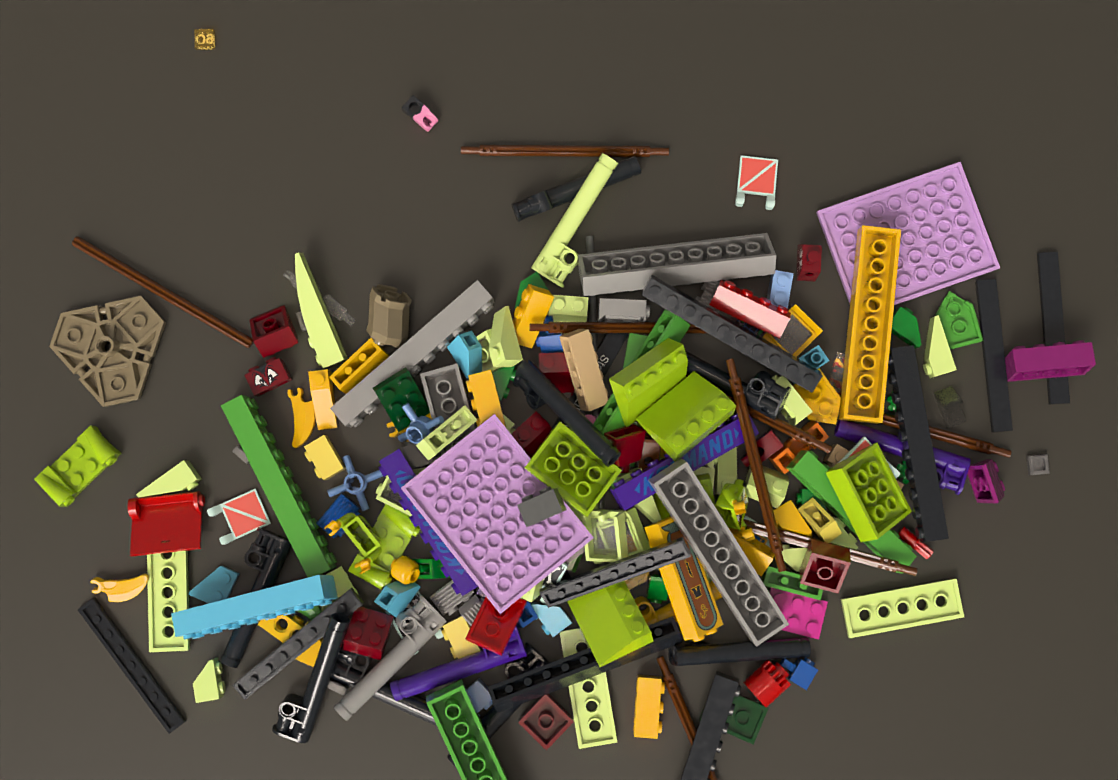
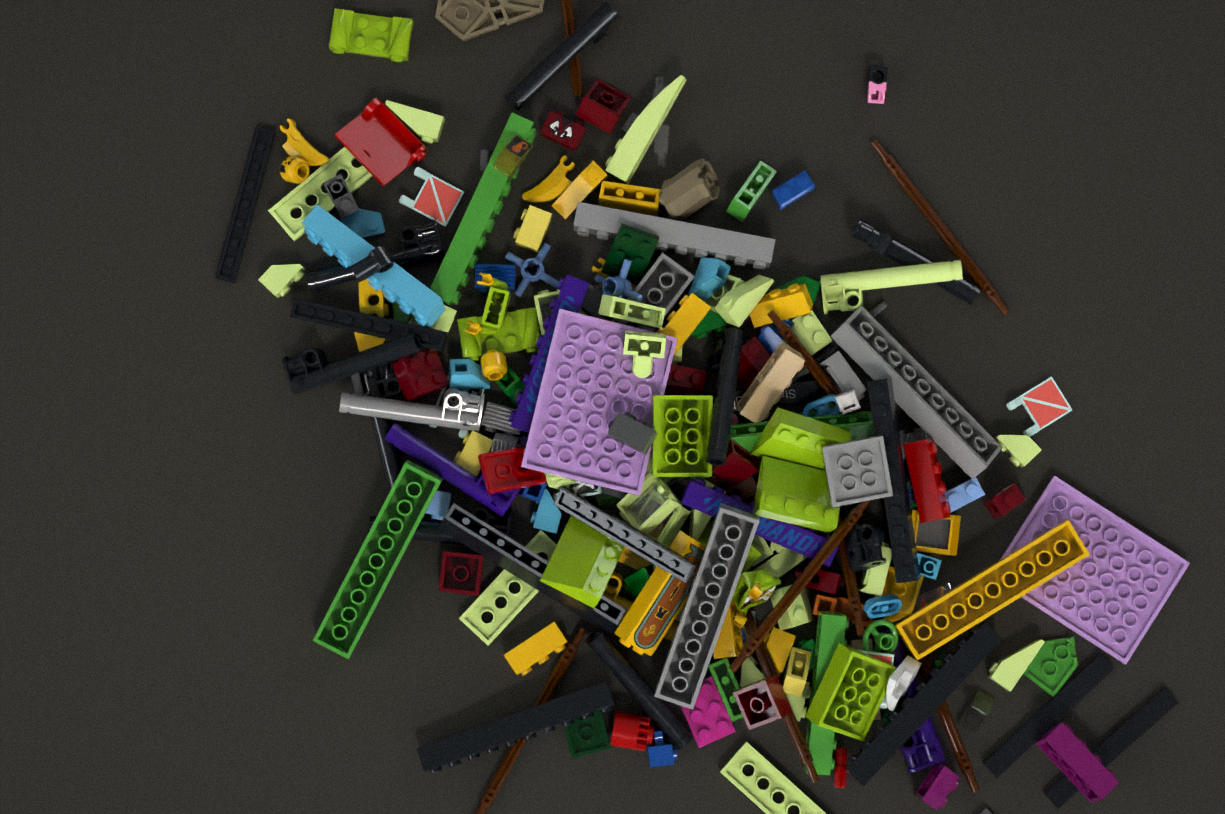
camera: 50 degrees right, 0 degrees up
(134, 607) = (294, 170): none -> yellow head
(181, 588) = (341, 196): none -> dark grey slope
(207, 295) = (588, 32): none -> black piece
(251, 603) = (376, 261): none -> black piece
(254, 432) = (512, 156): none -> clear yellow slope
(426, 270) = (751, 191): none -> bright green slope
(450, 238) = (792, 190): none -> blue brick
(482, 446) = (643, 348): none -> yellowish green brick
(633, 344) = (822, 407): none -> dark azure plate
(644, 321) = (847, 401): none -> tile
(705, 355) = (857, 471): none -> light grey plate
(778, 220) = (1019, 447): none -> yellowish green slope
(820, 416) = (882, 606): none -> dark azure plate
(847, 437) = (889, 641): none -> bright green piece
(888, 447) = (901, 680): none -> white slope
(906, 327) = (1013, 622): green slope -> none

